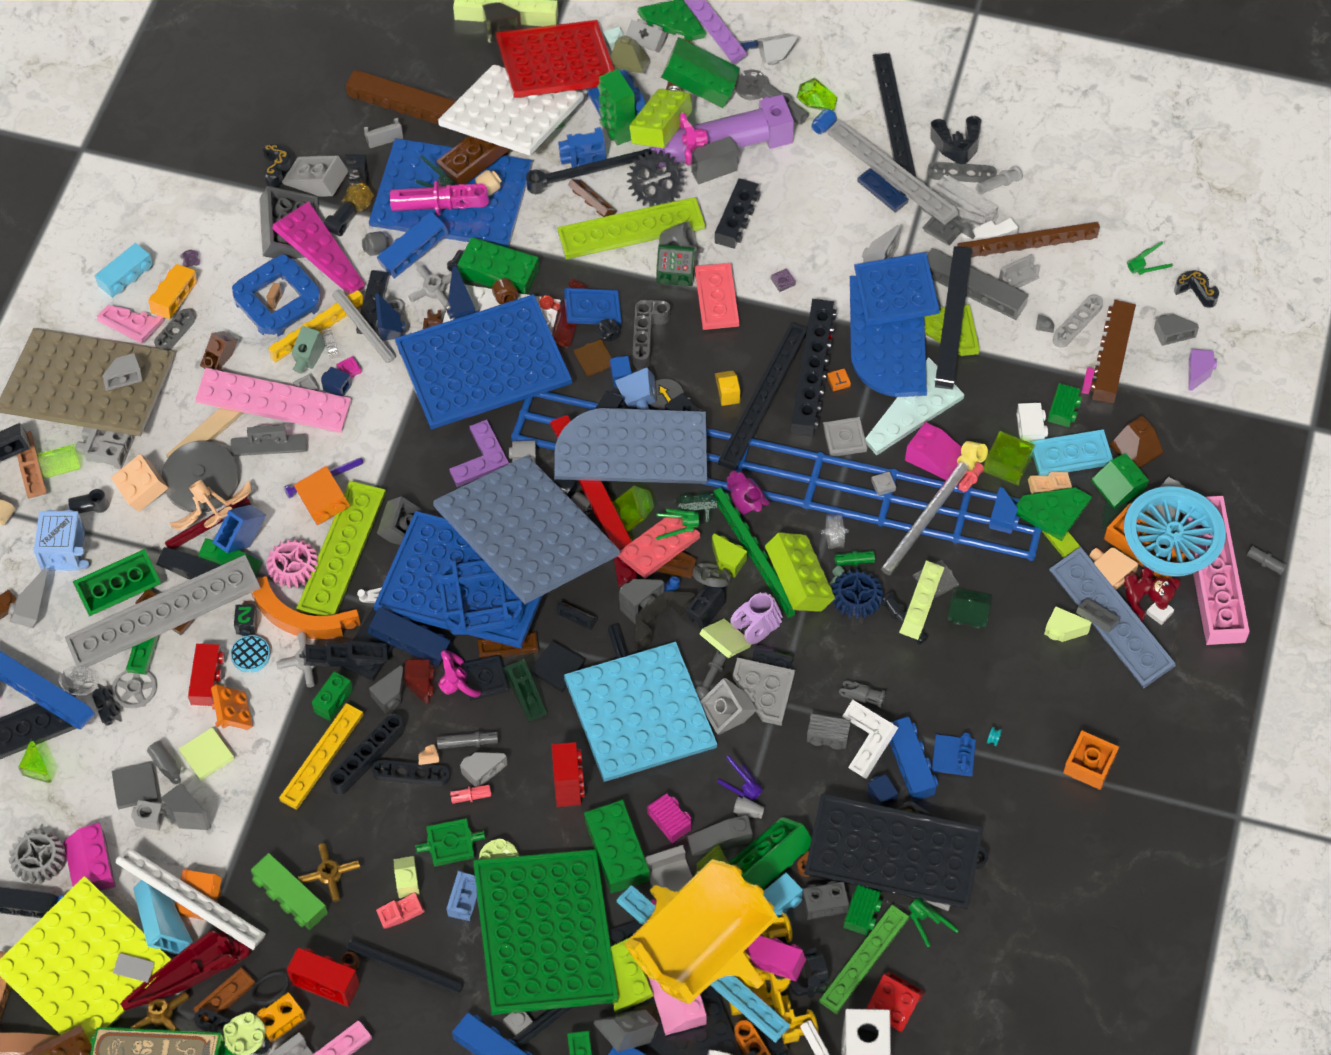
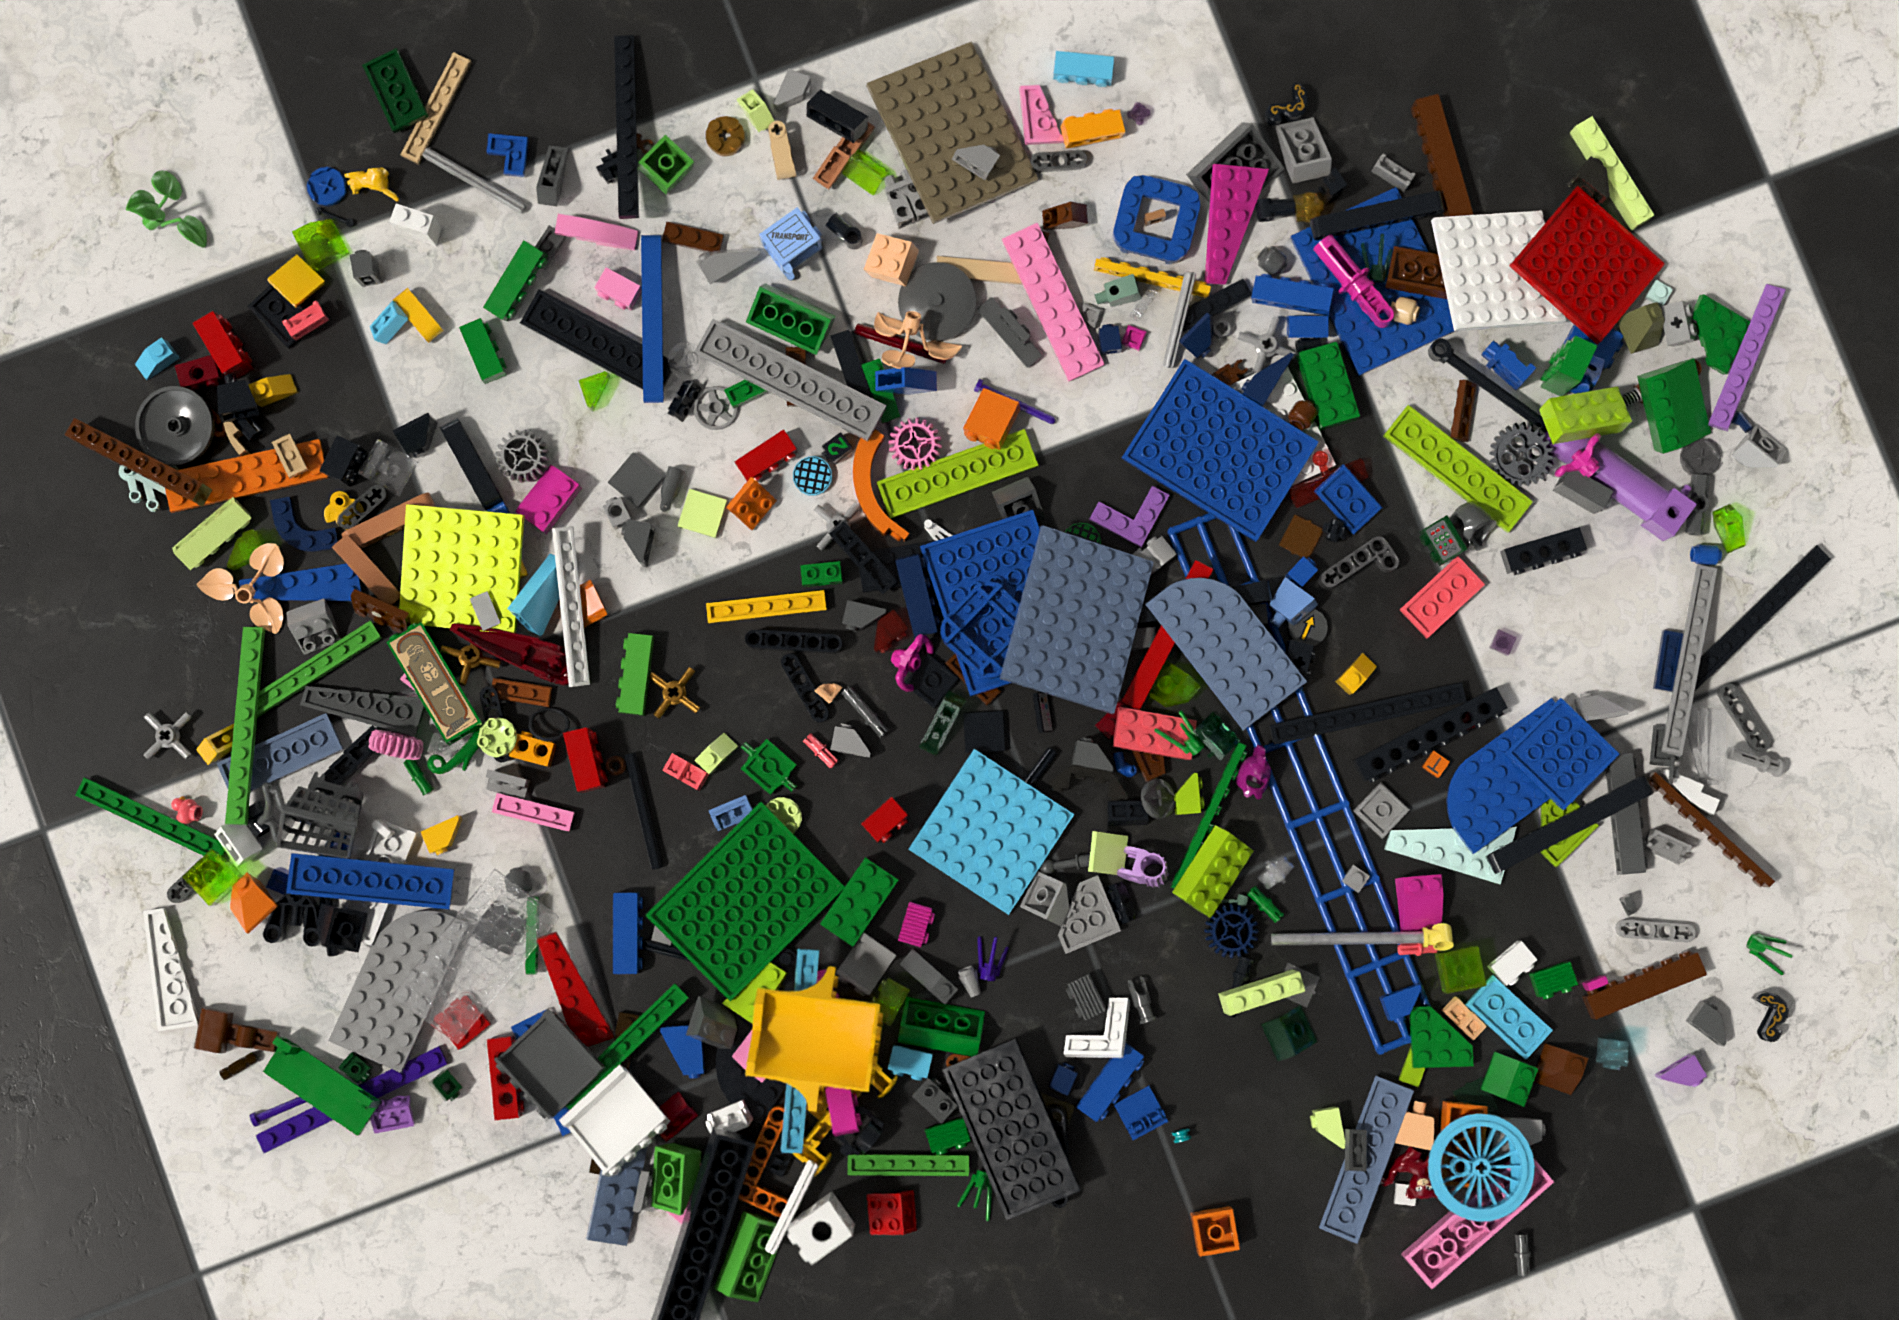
camera: 50 degrees right, 25 degrees up
(404, 157) = (1377, 215): none -> black beam
(442, 252) = (1307, 326): none -> blue hinge
(960, 149) = (1763, 680): black connector -> none
(1149, 399) = (1612, 1053): none -> clear light blue brick

